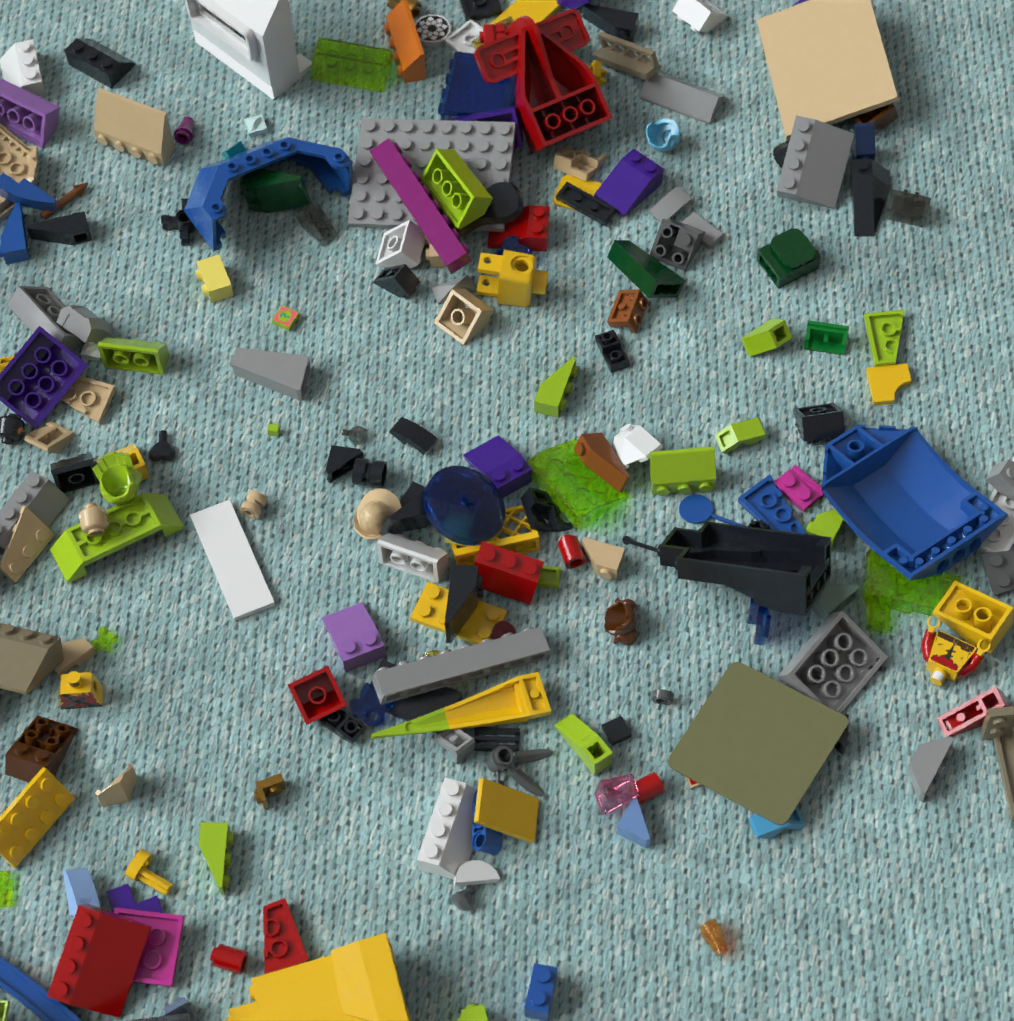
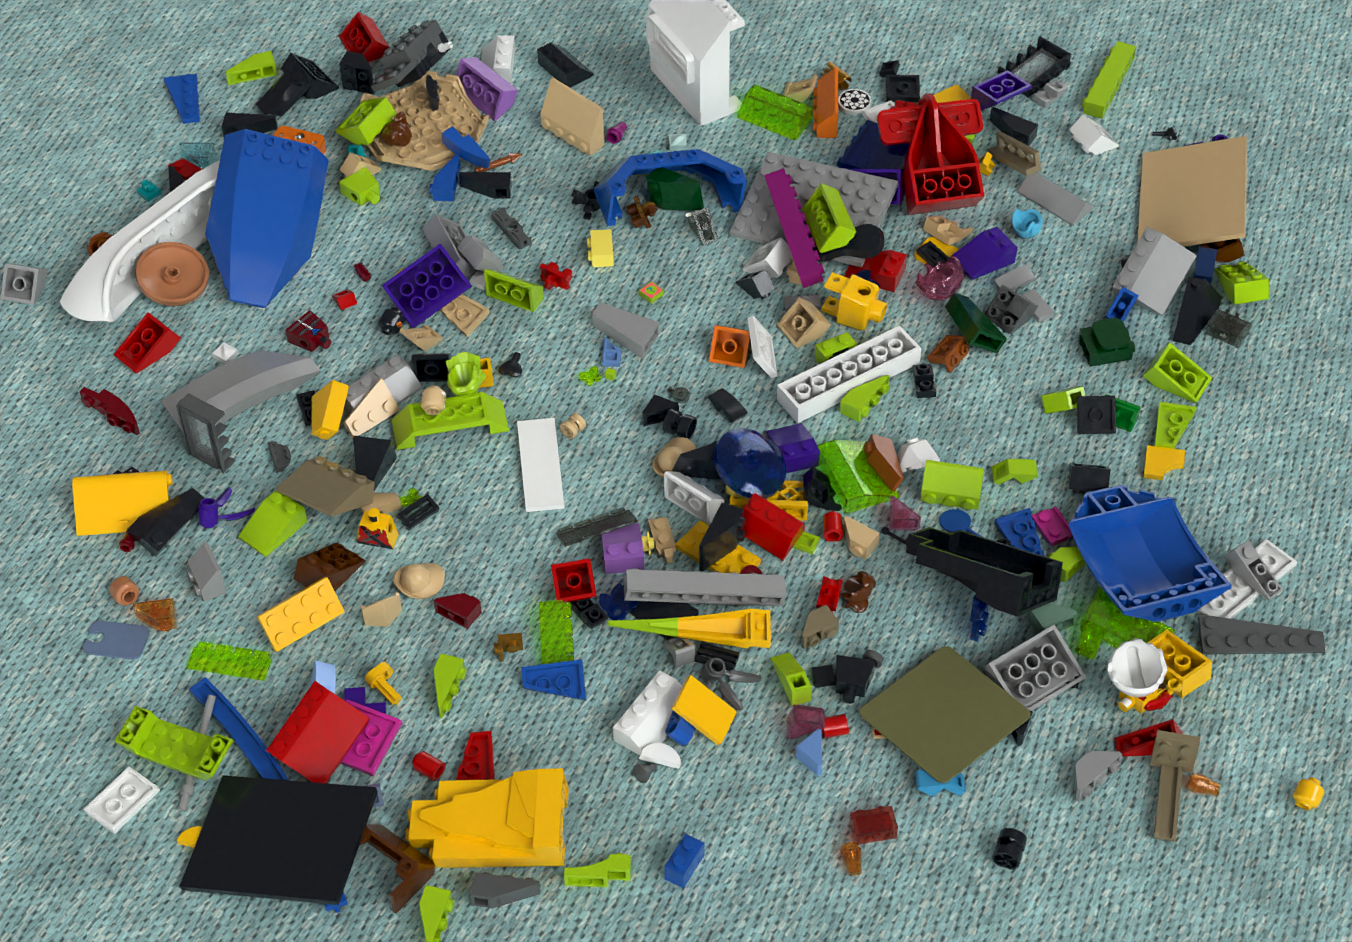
camera: 15 degrees right, 10 degrees down
(46, 606) = (373, 457): none -> black slope
(106, 669) = (405, 521): none -> black tile
(114, 286) = (517, 235): none -> dark grey piece
(145, 736) = (419, 580): none -> tan hat
(174, 328) = (553, 277): none -> red hips
(201, 760) = (459, 608): none -> dark red slope
(237, 219) = (643, 212): none -> reddish brown hips
(252, 437) = (591, 376): none -> clear neon green piece
(266, 405) = (611, 354): none -> medium blue tile
(313, 761) = (556, 631): none -> clear neon green windscreen
(324, 616) = (600, 525): none -> clear smoke windscreen
(335, 815) = (556, 678): none -> blue wing
(369, 29) = (801, 89): none -> tan slope
(381, 624) = (648, 543): none -> light yellow plate
(394, 362) = (730, 346): none -> orange slope
(394, 613) = (663, 538): none -> tan hinge
(429, 357) = (762, 347): none -> white tile
(508, 340) = (833, 347): none -> lime brick
(535, 359) = (833, 379): none -> white brick
(593, 634) = (829, 593): none -> red hips
(595, 227) = (941, 280): none -> clear pink piece
(595, 673) = (819, 626): none -> dark tan slope
(640, 520) = (902, 517): none -> clear pink slope
(648, 724) = (853, 677): none -> black torso
(724, 891) = (873, 825): none -> clear red brick
(792, 210) = (1122, 304): none -> blue slope
(805, 346) = (1096, 415): none -> black tile
(872, 276) = (1177, 374): none -> lime slope
(872, 878) = (1009, 848): none -> black wheel
(907, 150) = (1243, 283): none -> lime slope
(944, 640) = (1137, 668): none -> white piece

